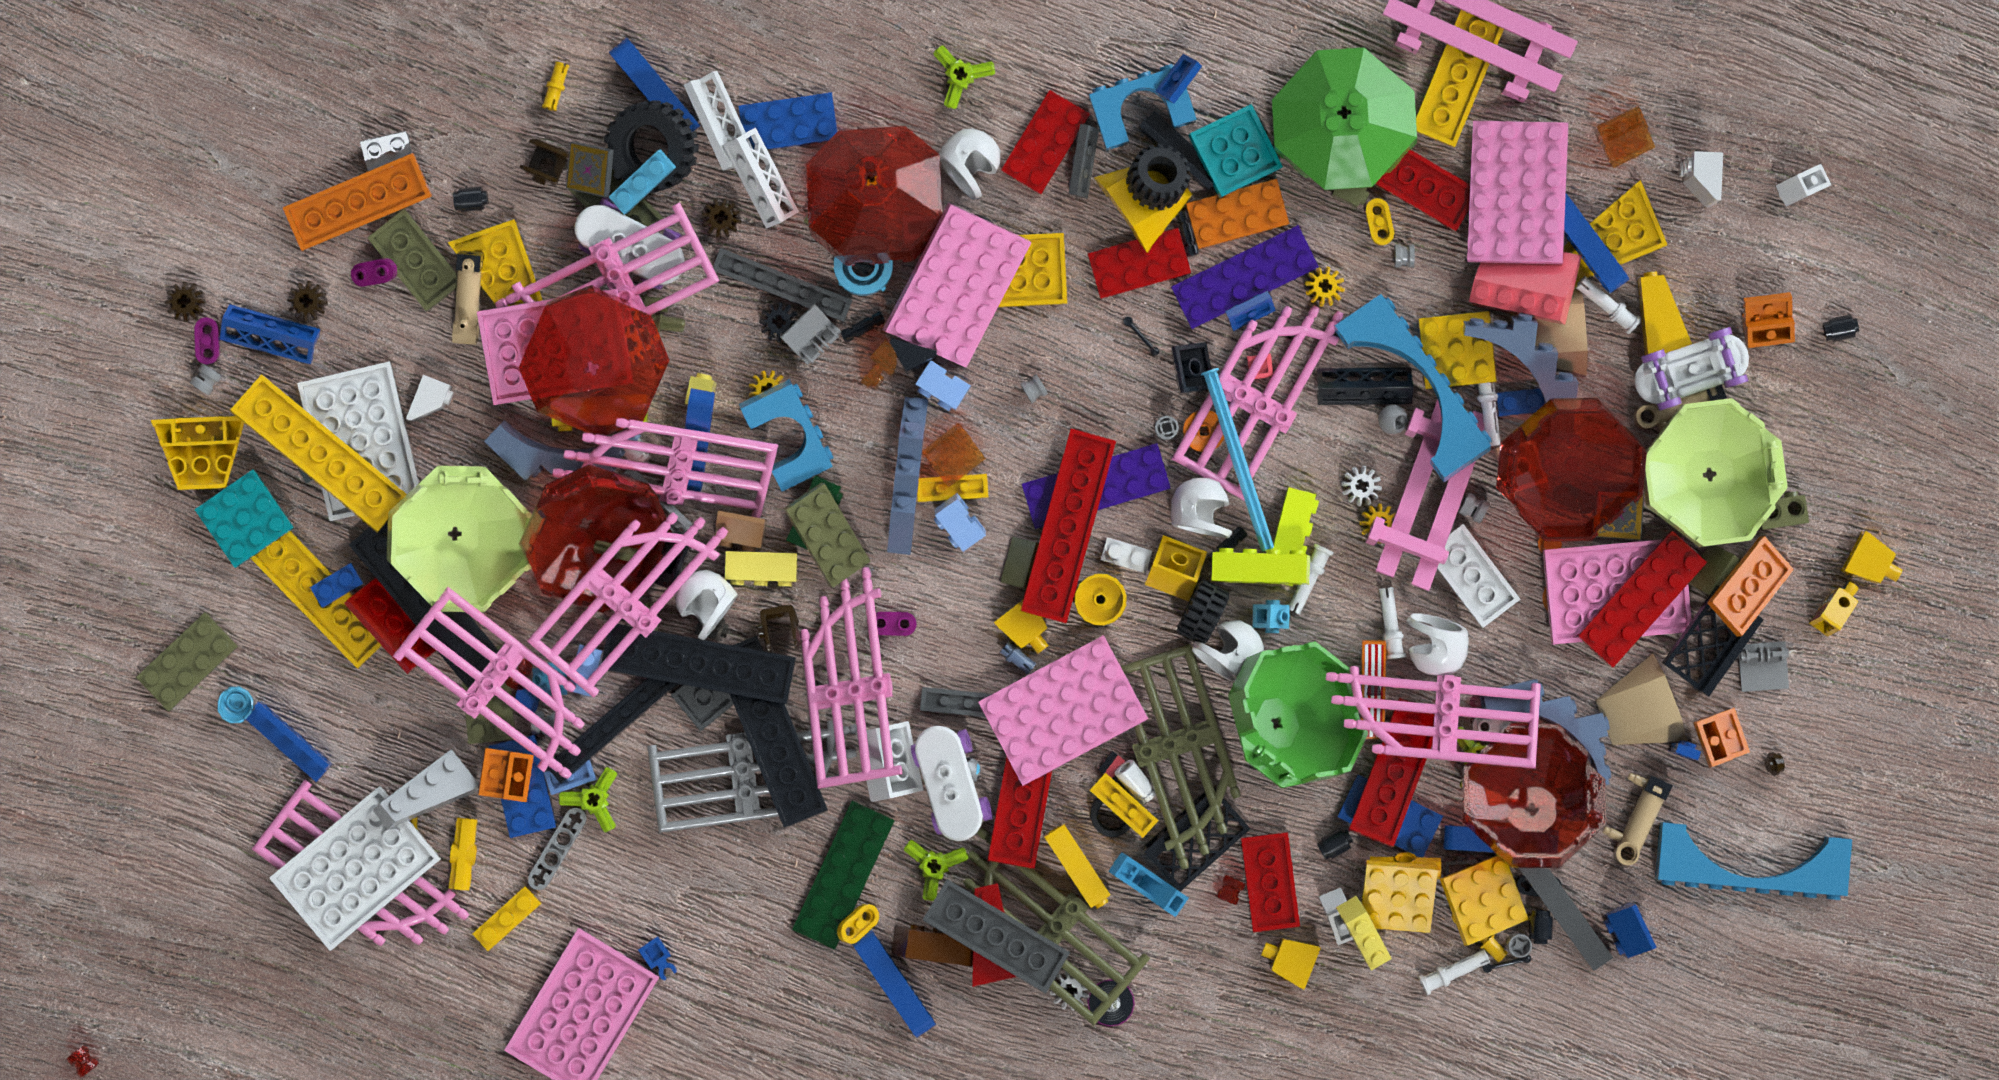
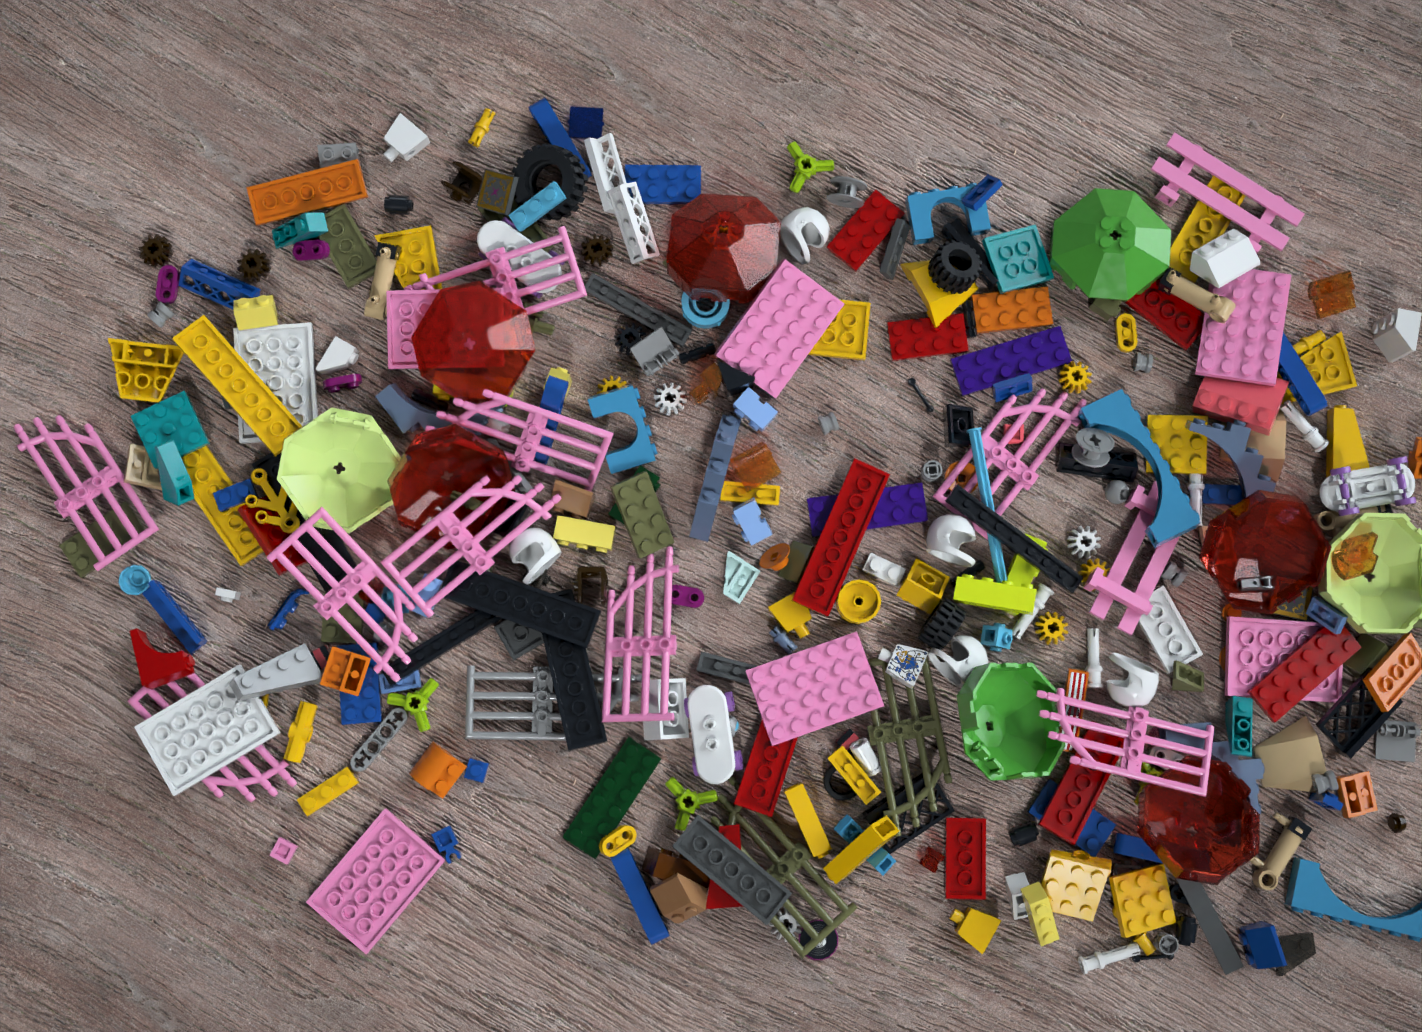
camera: 10 degrees right, 5 degrees down
(160, 605) = (88, 490): none -> bright pink piece
(216, 570) = (140, 469): none -> tan wing
(261, 575) = (173, 474): none -> teal slope
(283, 803) = (158, 667): none -> red arch
(321, 360) = (255, 312): none -> light yellow brick
(348, 706) = (227, 595): none -> white plate
(356, 250) = (300, 229): none -> teal slope
(388, 589) = (276, 504): none -> yellow plant
(422, 707) = (288, 605): none -> blue piece
(431, 432) = (350, 381): none -> magenta plate
(463, 117) = (404, 139): none -> white torso
(467, 995) = (283, 850): none -> bright pink plate
(472, 761) = (321, 656): none -> tile
(549, 434) = (429, 400): none -> black axle
(632, 873) = (437, 770): none -> orange brick
(678, 867) = (476, 770): none -> blue plate
(682, 59) = (585, 122): none -> clear blue piece
(836, 396) = (666, 405): none -> white gear
(940, 978) = (679, 898): none -> medium nougat slope
(953, 592) = (738, 577): none -> light aqua wing
(994, 561) = (775, 557): none -> orange piece
(1014, 101) = (846, 192): none -> light grey piece
(1143, 890) = (860, 849): none -> yellow slope
(1165, 664) = (904, 663): none -> torso
(1275, 497) = (1014, 539): none -> black tile
(1331, 588) = (1049, 620): none -> yellow gear
(1355, 370) = (1092, 447): none -> light grey piece
(1453, 166) = (1217, 307): none -> tan piece
(1484, 115) = (1224, 258): none -> white slope
(1505, 630) = (1187, 678): none -> olive slope
(1567, 506) = (1254, 584): none -> flat silver bar
(1572, 678) = (1239, 725): none -> teal slope
(1601, 201) = (1306, 343): none -> yellow pin
(1658, 531) = (1326, 615): none -> medium blue plate
(1670, 930) = (1296, 950): none -> clear smoke wing
(1677, 730) = (1323, 783): none -> light grey wheel
(1684, 456) = (1355, 556): none -> clear orange brick

